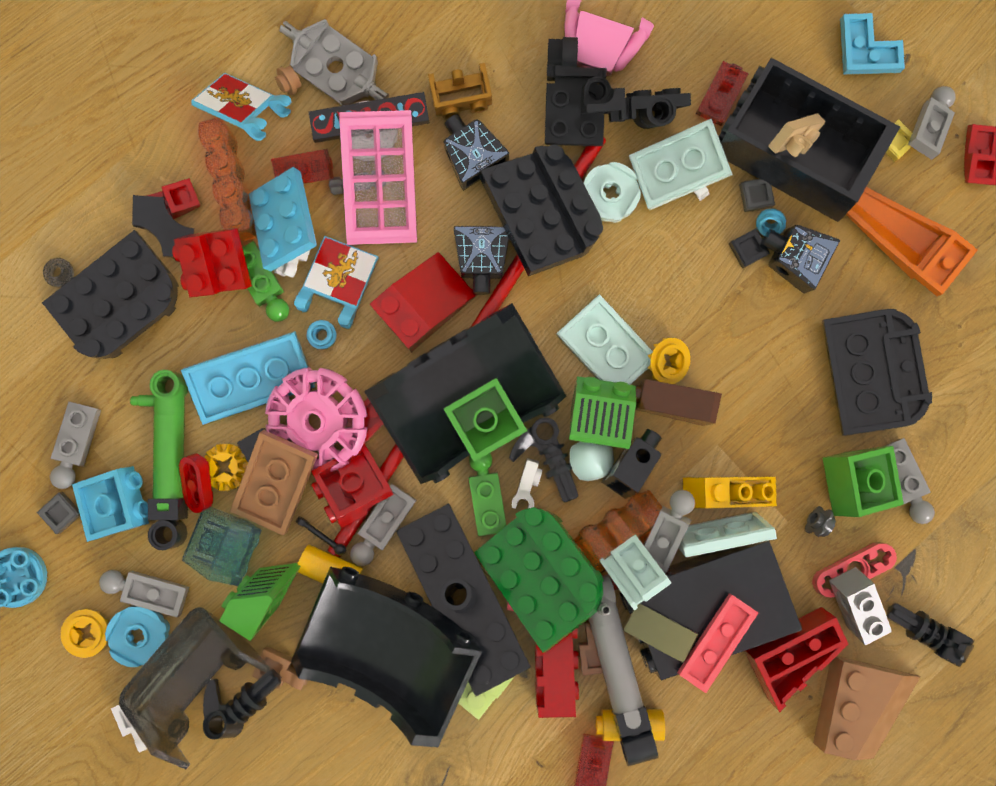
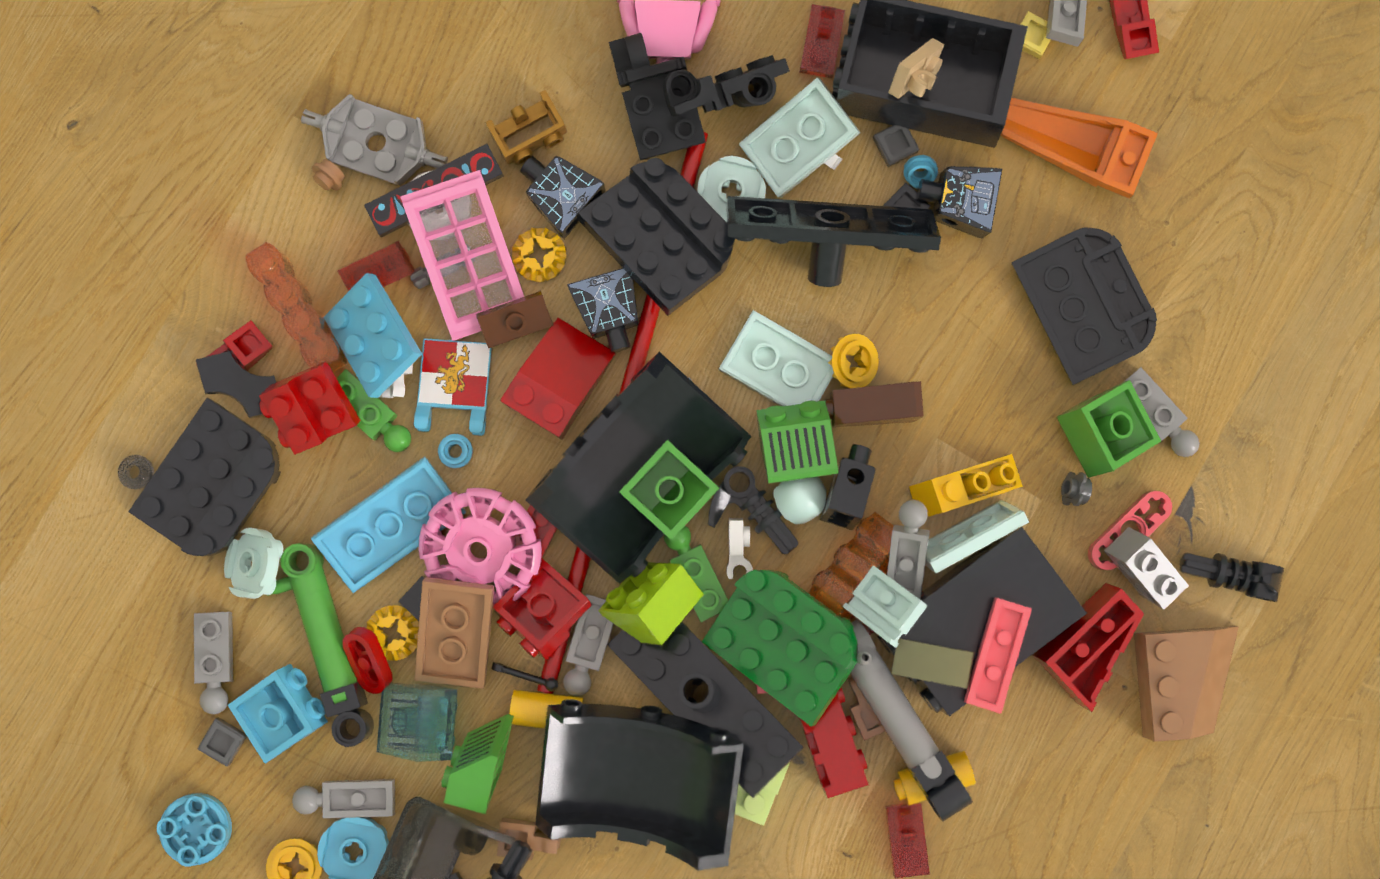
camera: 15 degrees left, 0 degrees up
(128, 375) = (260, 577): none -> light aqua plate
(240, 104) = (283, 219): flag -> none
(402, 242) = (514, 319): none -> reddish brown plate
(443, 508) = (652, 602): none -> lime slope
(448, 205) = (553, 261): none -> yellow gear
(684, 246) = (831, 229): none -> black plate

